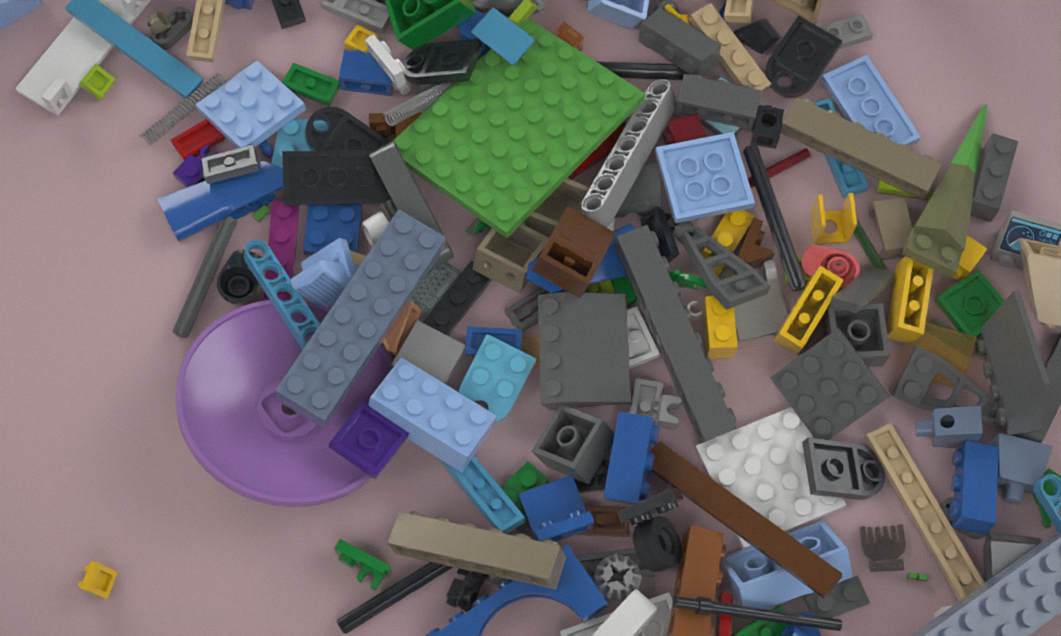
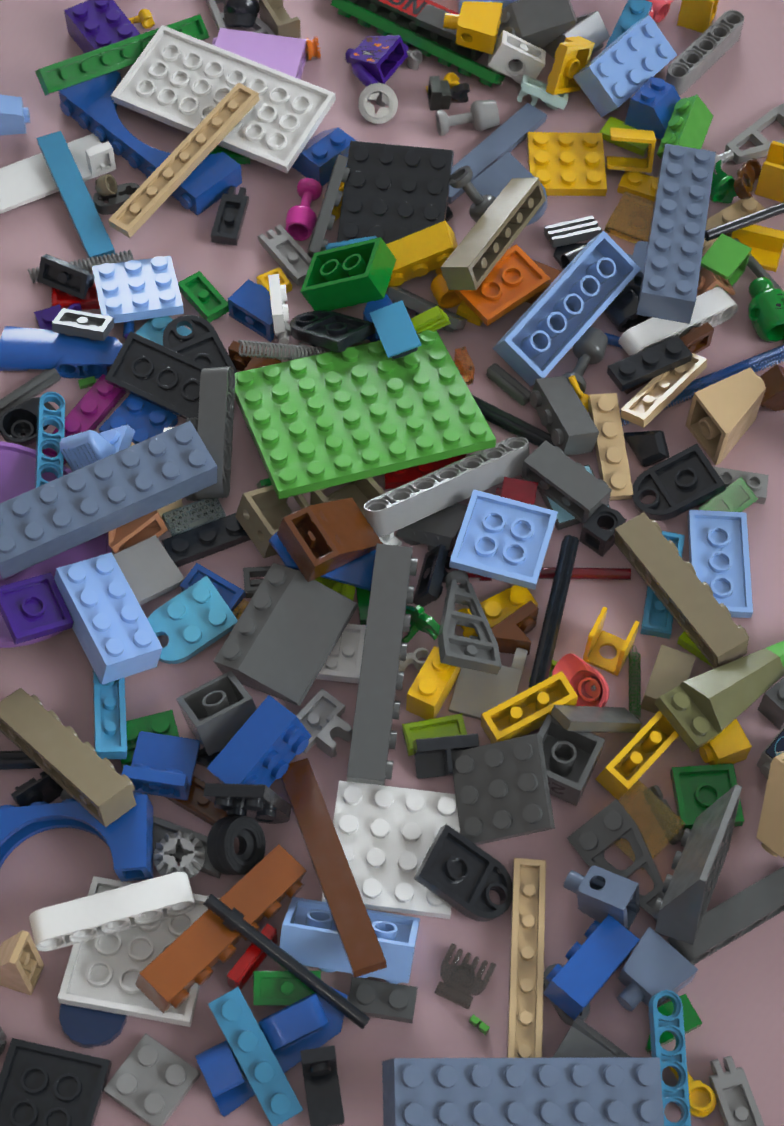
camera: 30 degrees right, 10 degrees down
(97, 82) = (24, 211): lime tile -> none
(181, 127) = (64, 276): none -> black plate
(614, 36) = (508, 384): none -> dark grey axle
(742, 367) = (432, 728): none -> lime tile
(759, 383) = (434, 754): none -> black panel
(852, 48) = (734, 499): none -> green tile

